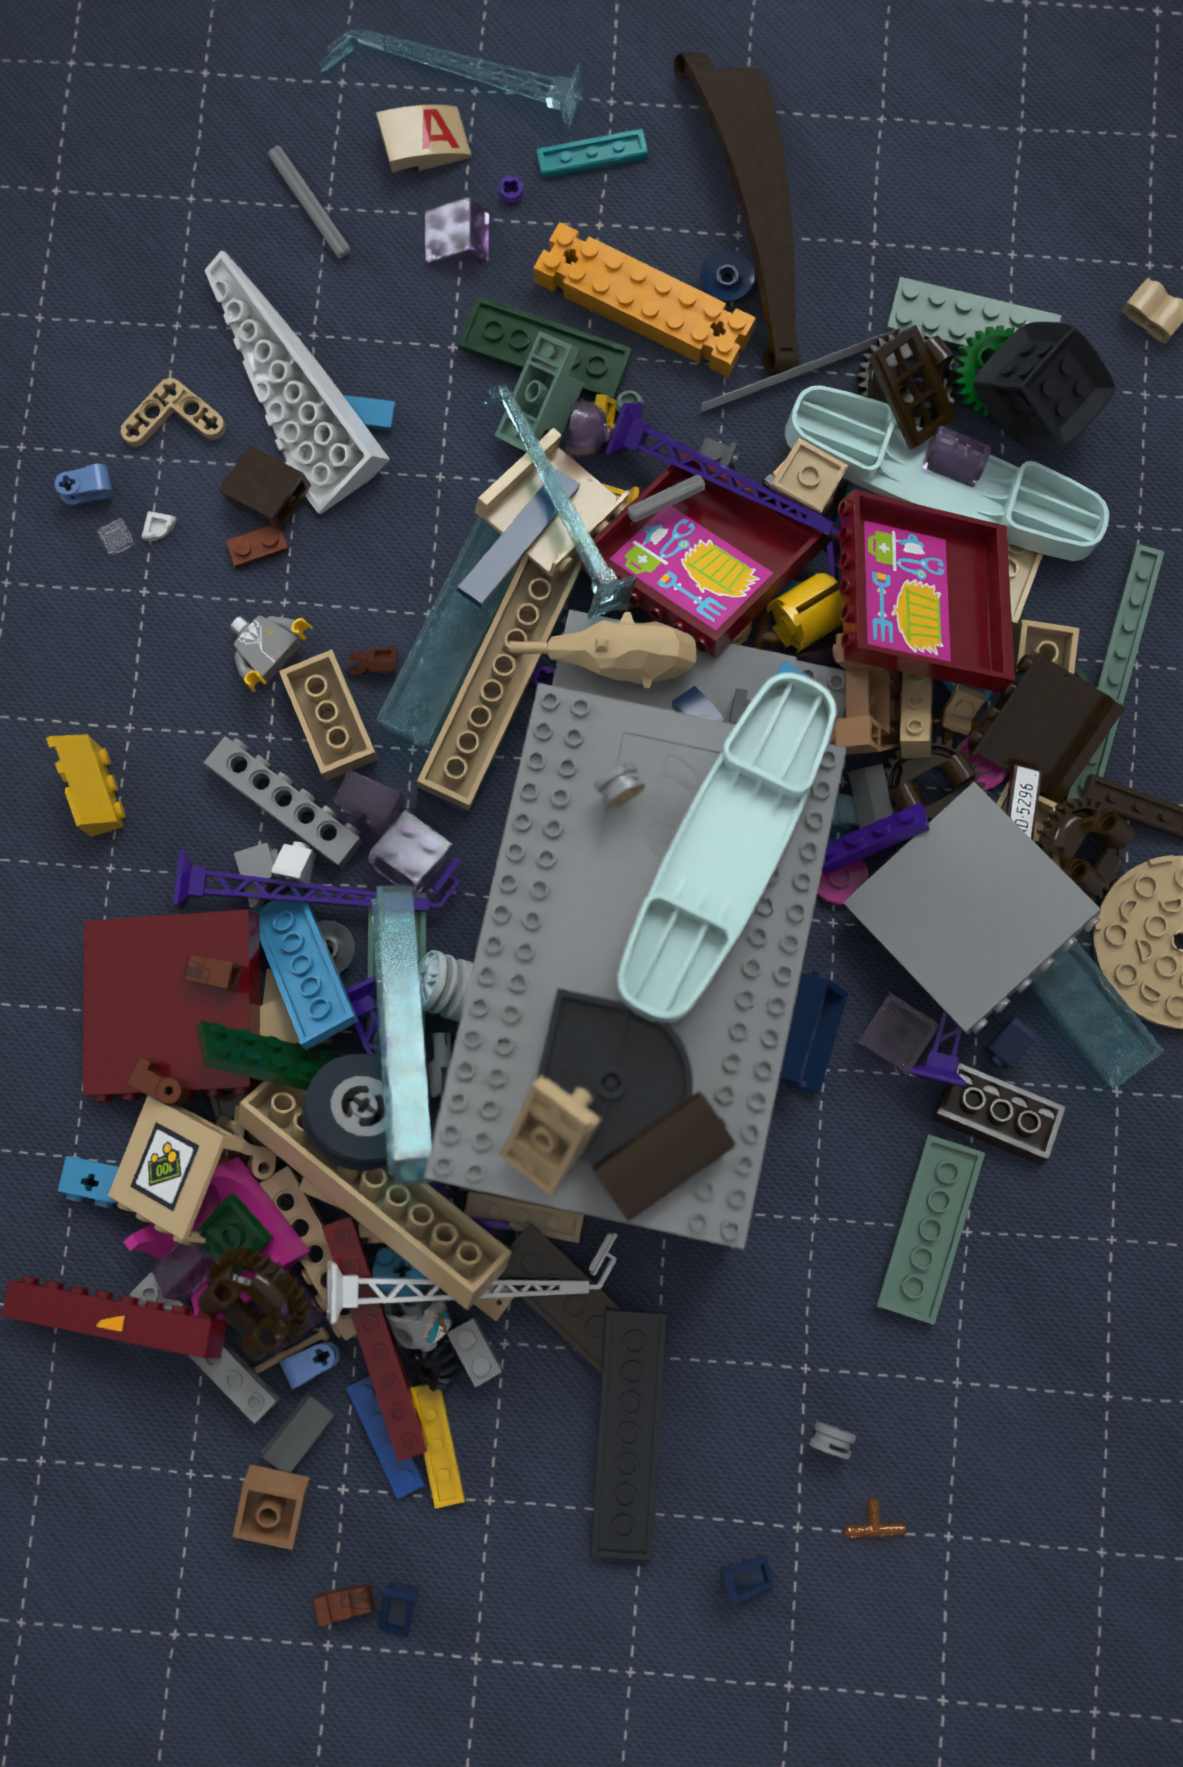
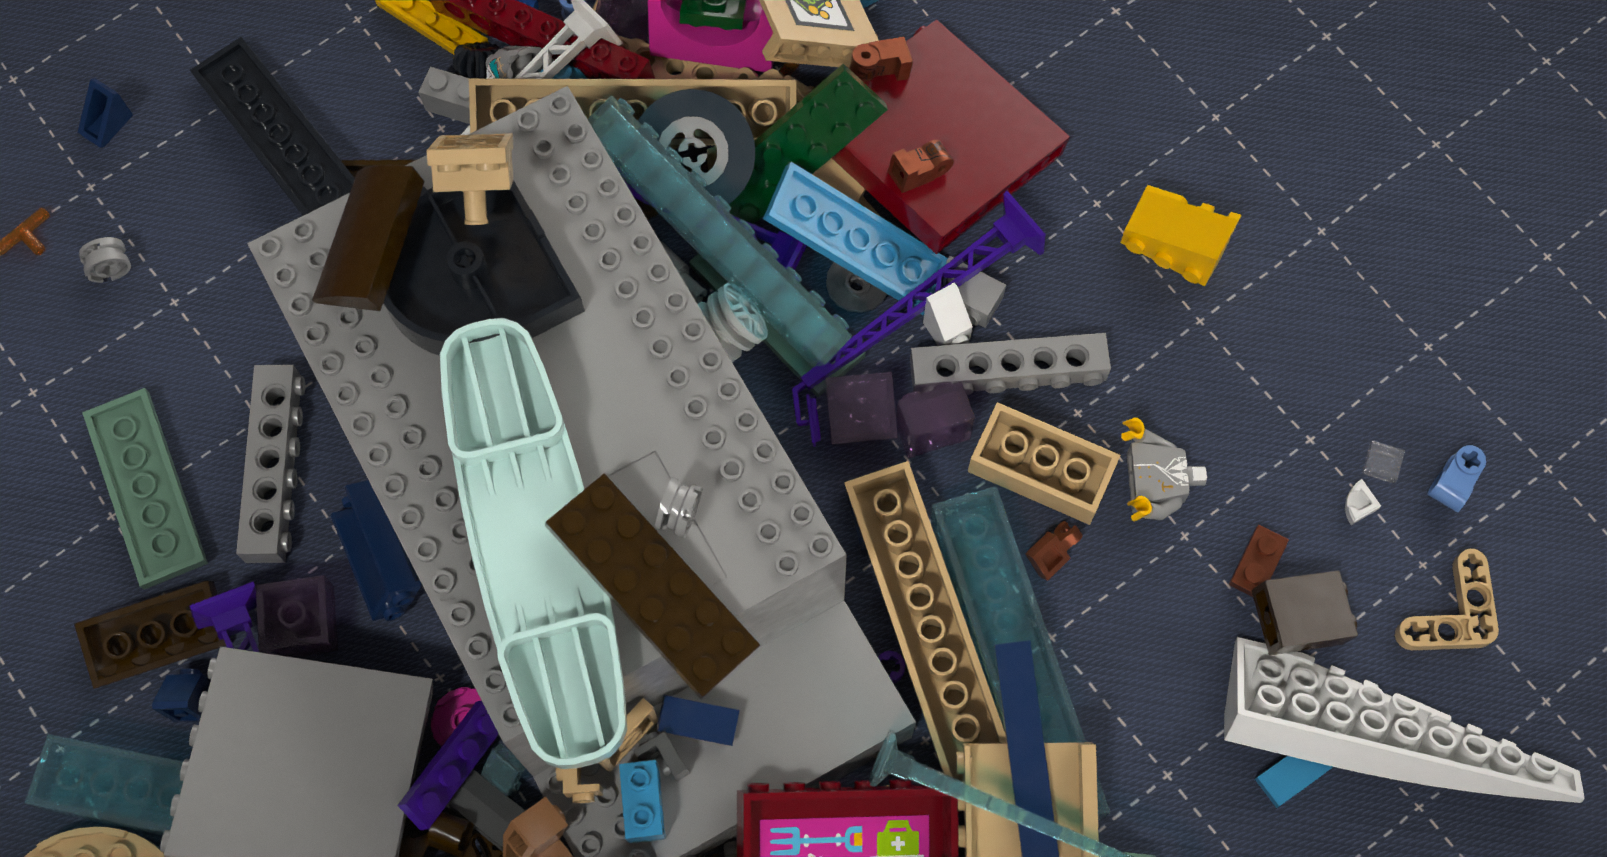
camera: 135 degrees right, 10 degrees down
(621, 650) = (825, 712): tan piece -> none
(677, 757) = (652, 585): none -> dark brown plate
(885, 1117) = (268, 385): none -> light grey brick

